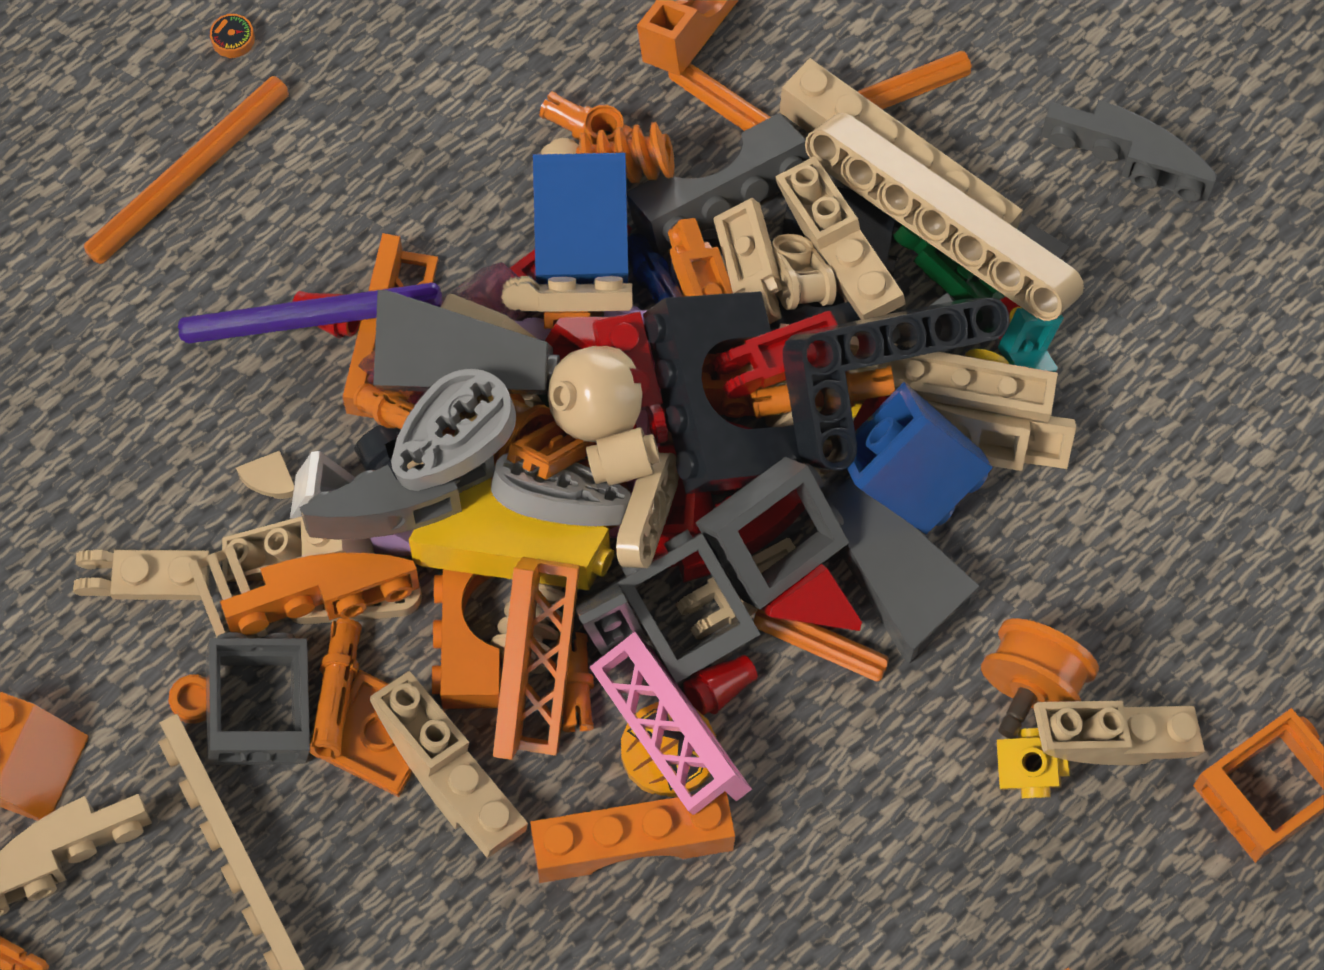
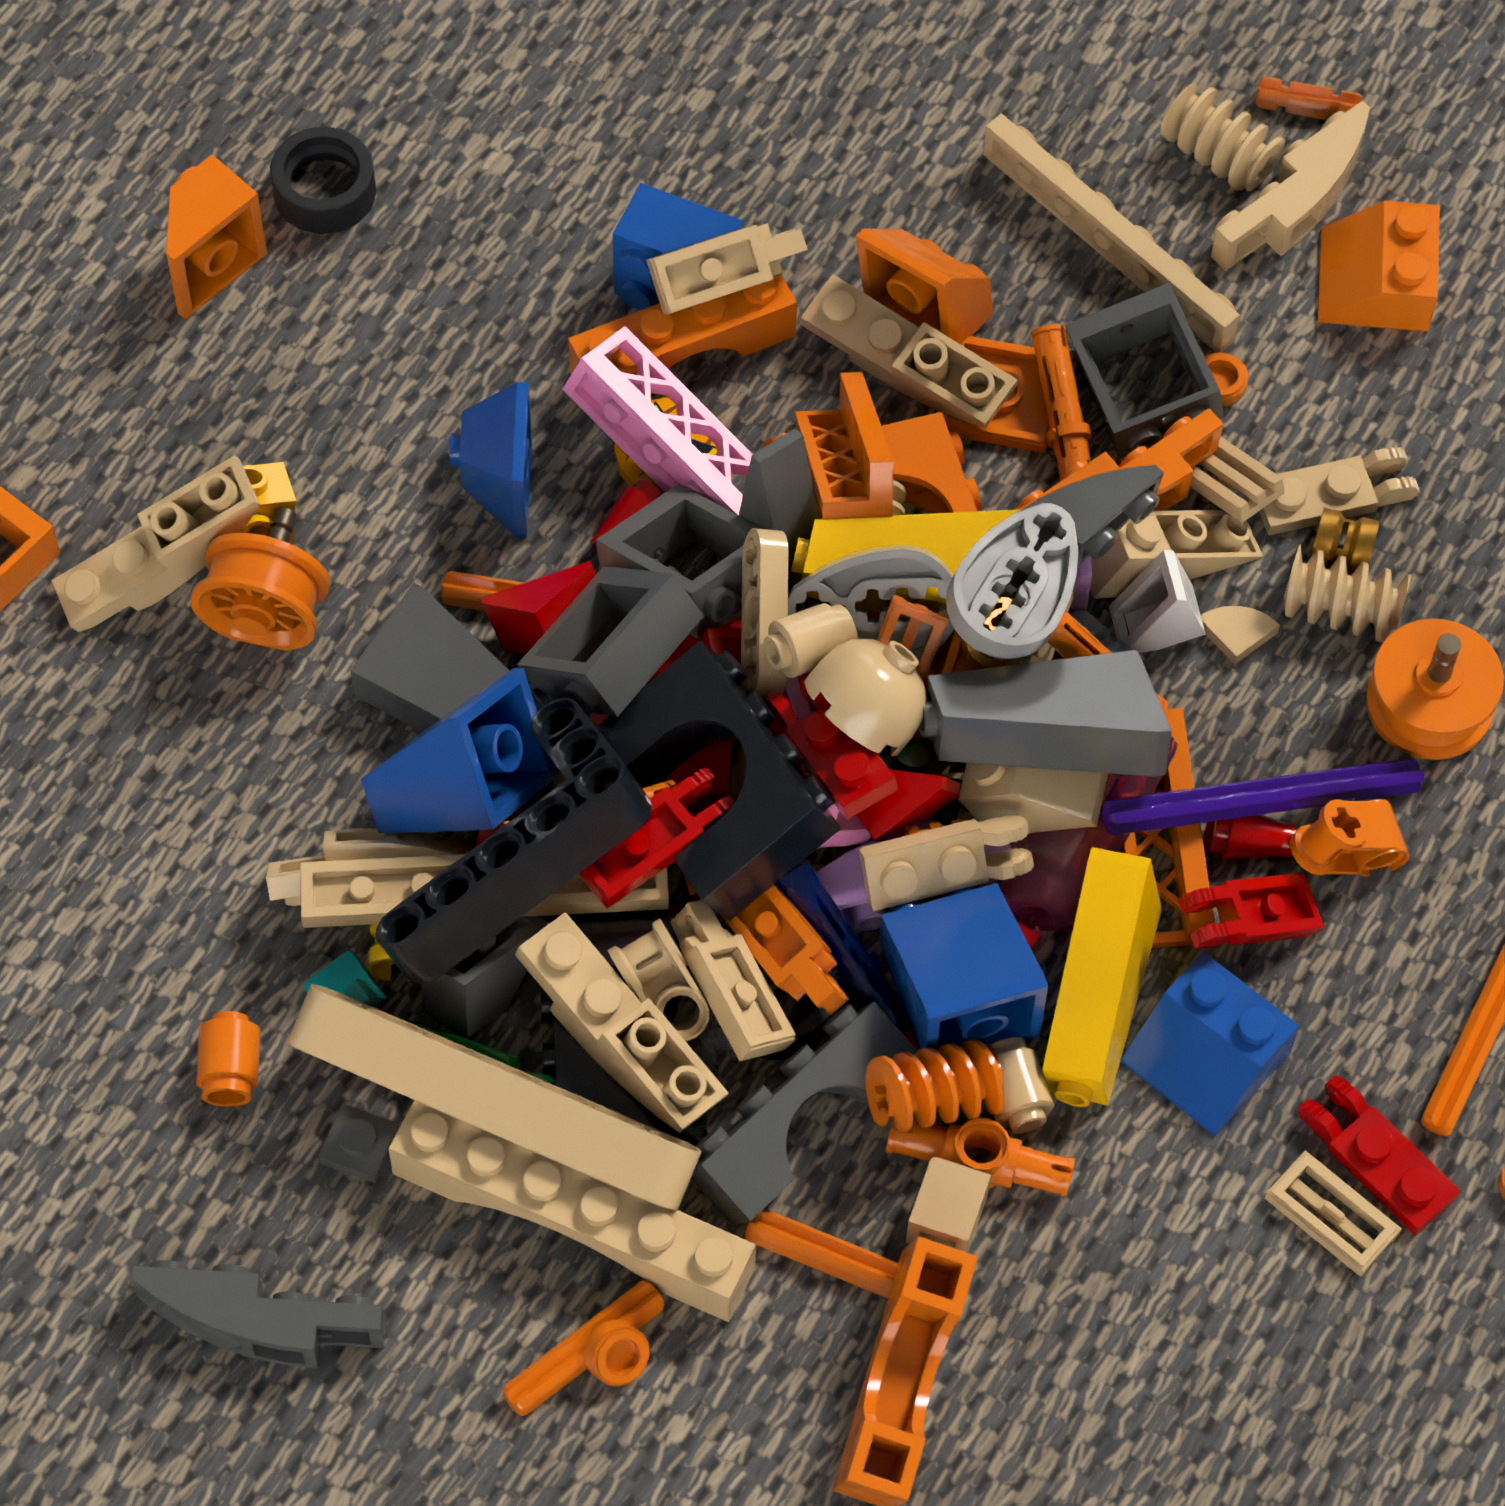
camera: 165 degrees right, 5 degrees down
(93, 918) = (1219, 140): none -> tan piece
(142, 375) = (1434, 689): none -> orange wheel
(154, 518) = (1358, 540): none -> pearl gold wheel
(173, 472) = (1345, 595): none -> tan piece
(255, 280) = (1350, 839): none -> orange piece
(326, 73) = (1381, 1157): none -> red hinge
(352, 233) = (1255, 910): none -> red hinge
(391, 76) = (1317, 1229): none -> tan tile
(410, 824) = (923, 282): none -> orange slope
(413, 167) = (1210, 1043): none -> blue slope
(475, 216) = (1102, 976): none -> yellow slope
(585, 846) = (721, 265): none -> tan hinge
(622, 905) = (655, 226): none -> blue slope
(640, 95) = (949, 1204): none -> tan panel
(819, 752) = (497, 455): none -> blue slope
(890, 67) = (616, 1353): none -> orange tile
(1122, 326) = (228, 1059): none -> orange brick

